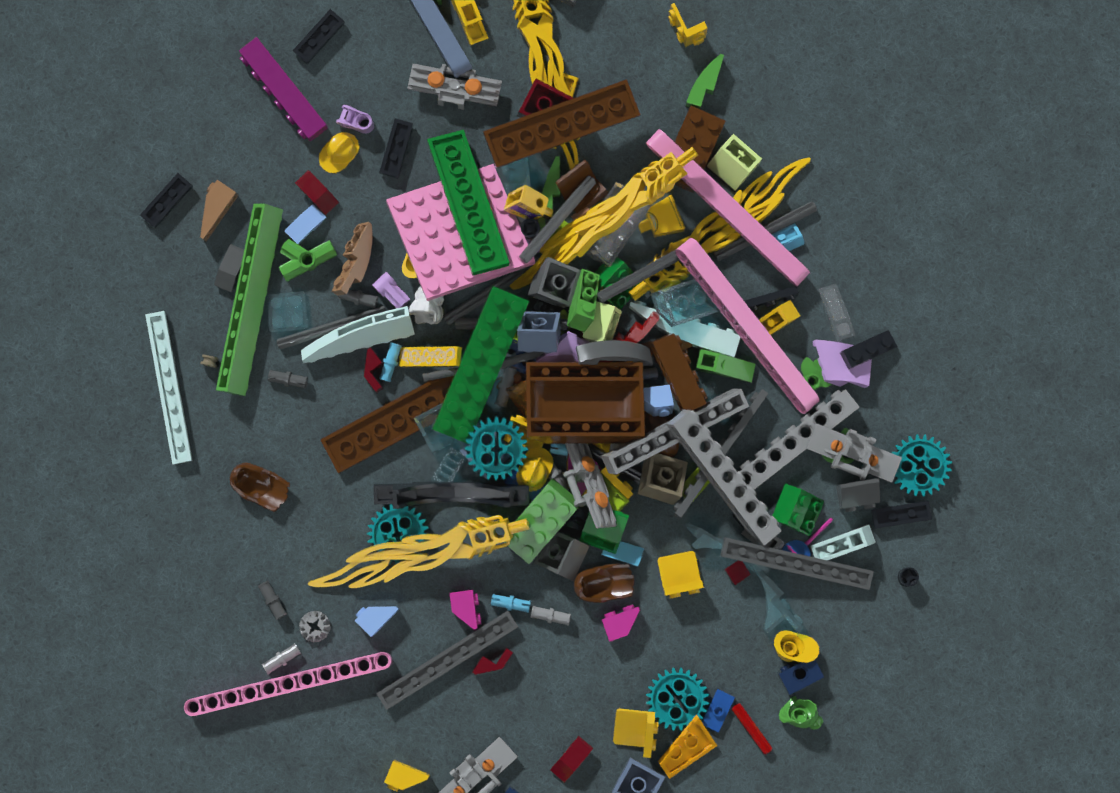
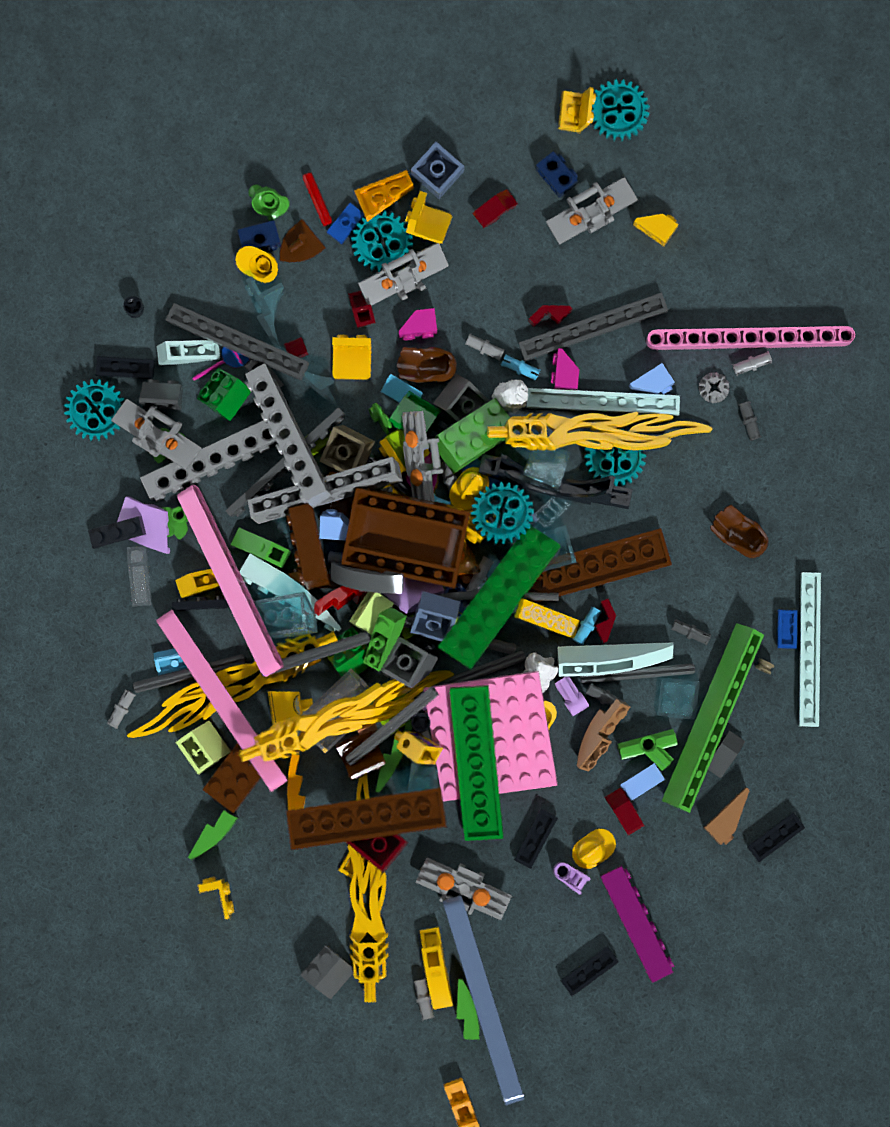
camera: 170 degrees left, 0 degrees up
(194, 402) = (787, 629): none -> blue plate
(421, 586) = (603, 401): none -> light aqua plate
(462, 507) = (547, 466): none -> clear light blue plate
(513, 571) = (511, 395): none -> white hair
(634, 132) = (295, 801): none -> light orange slope
(640, 523) = (378, 415): none -> bright green plate
(642, 667) = (406, 279): none -> light grey piece
(681, 626) = (362, 312): none -> dark red slope
(758, 679) = (300, 244): none -> reddish brown shield
(822, 182) = (121, 708): none -> light grey pin

